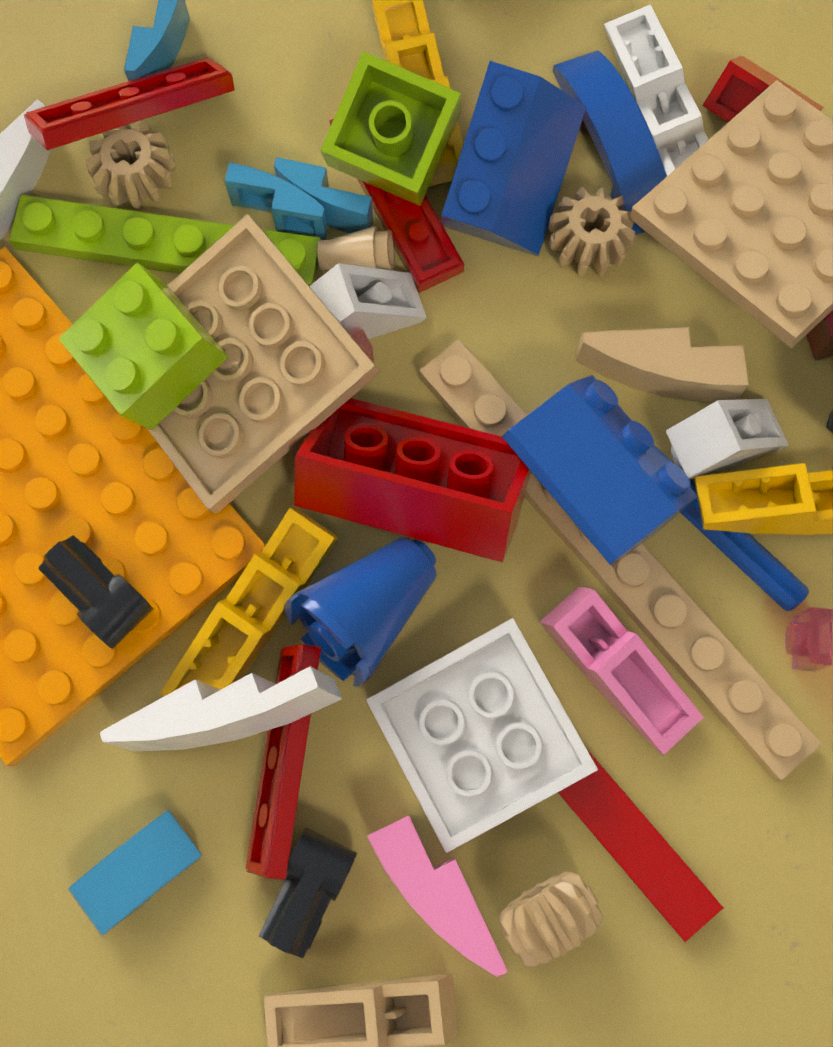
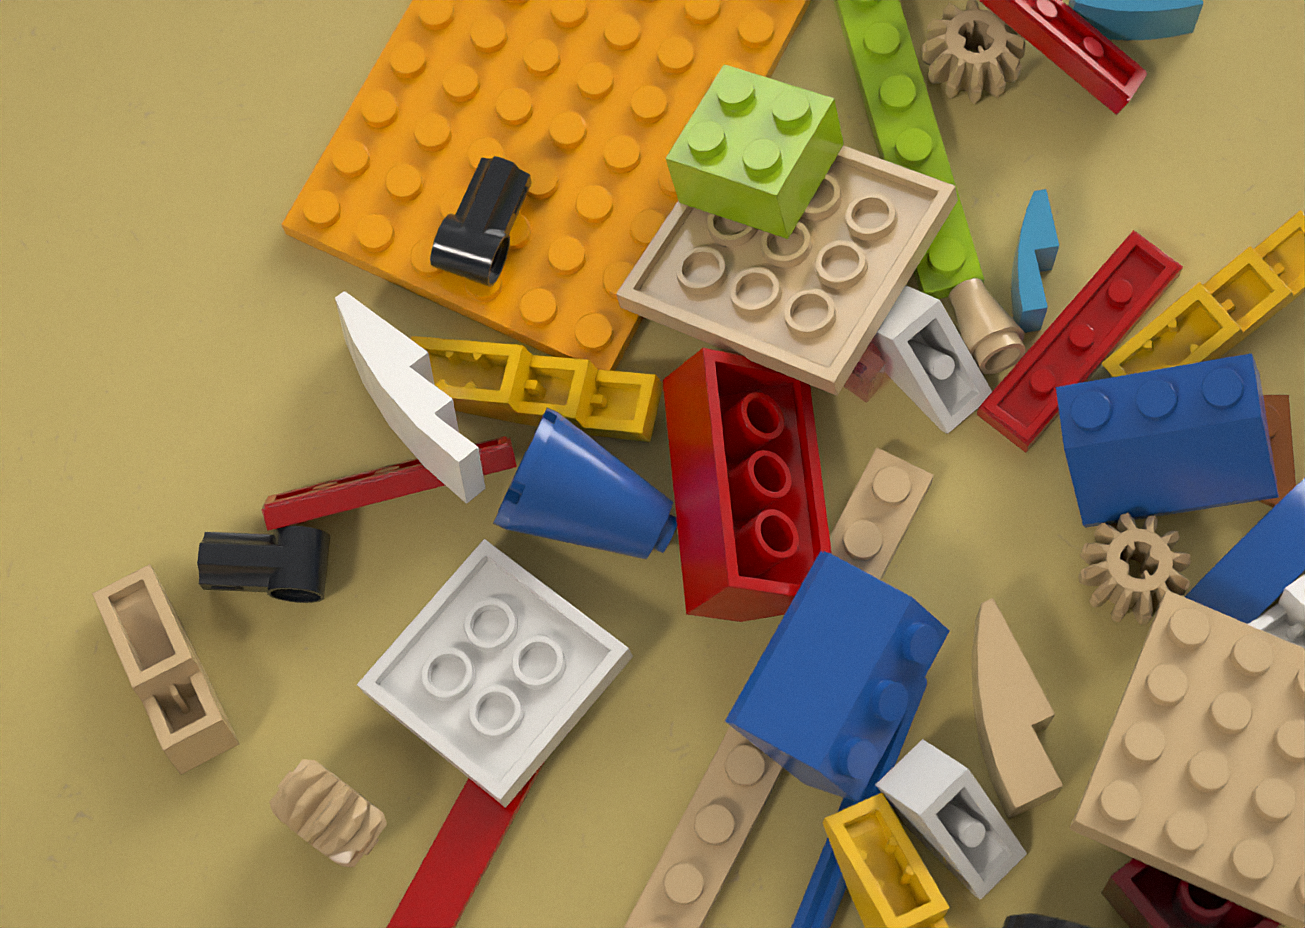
camera: 75 degrees right, 5 degrees down
(134, 872) = (224, 391): dark azure slope -> none
(291, 207) = (1001, 224): dark azure slope -> none
(391, 128) = (1131, 292): lime brick -> none
(436, 893) = (312, 691): bright pink slope -> none
(621, 668) = (627, 797): bright pink slope -> none

